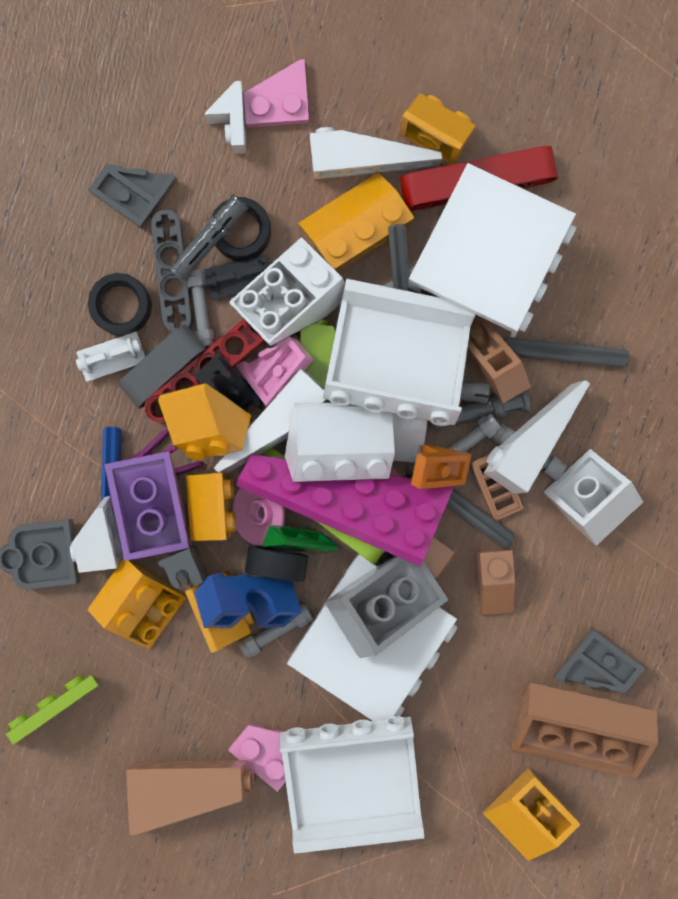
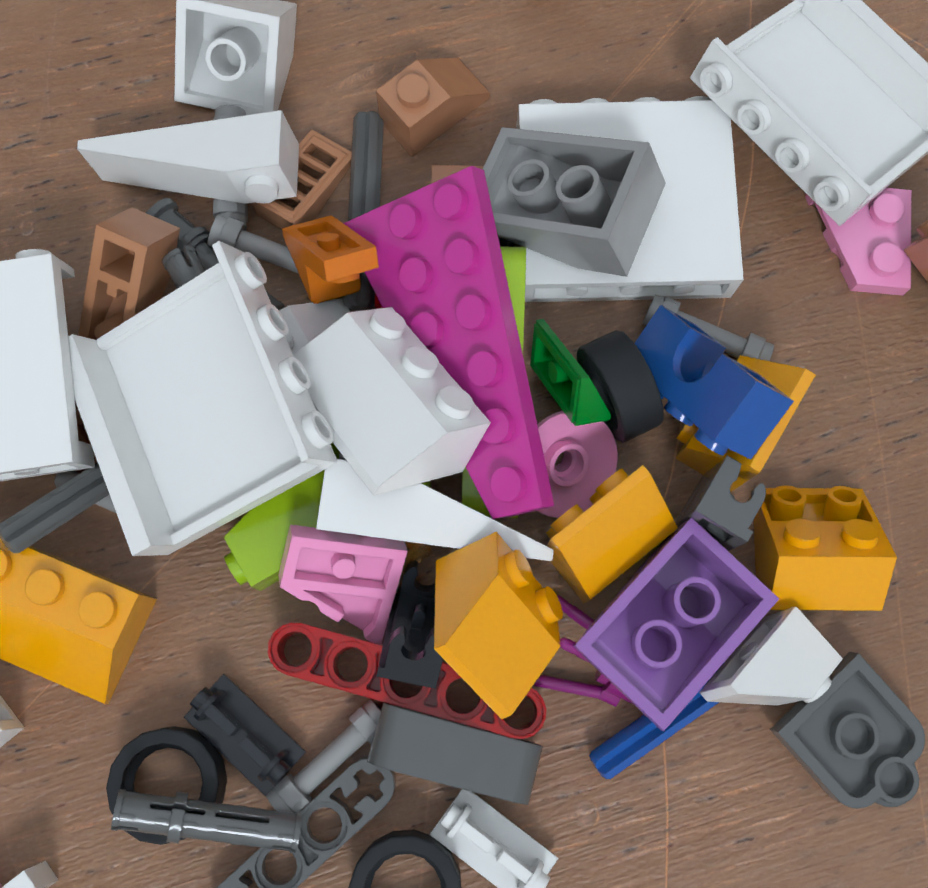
camera: 125 degrees left, 10 degrees down
(290, 294) = (214, 633): white slope -> none
(568, 352) = (52, 197): dark grey axle -> none

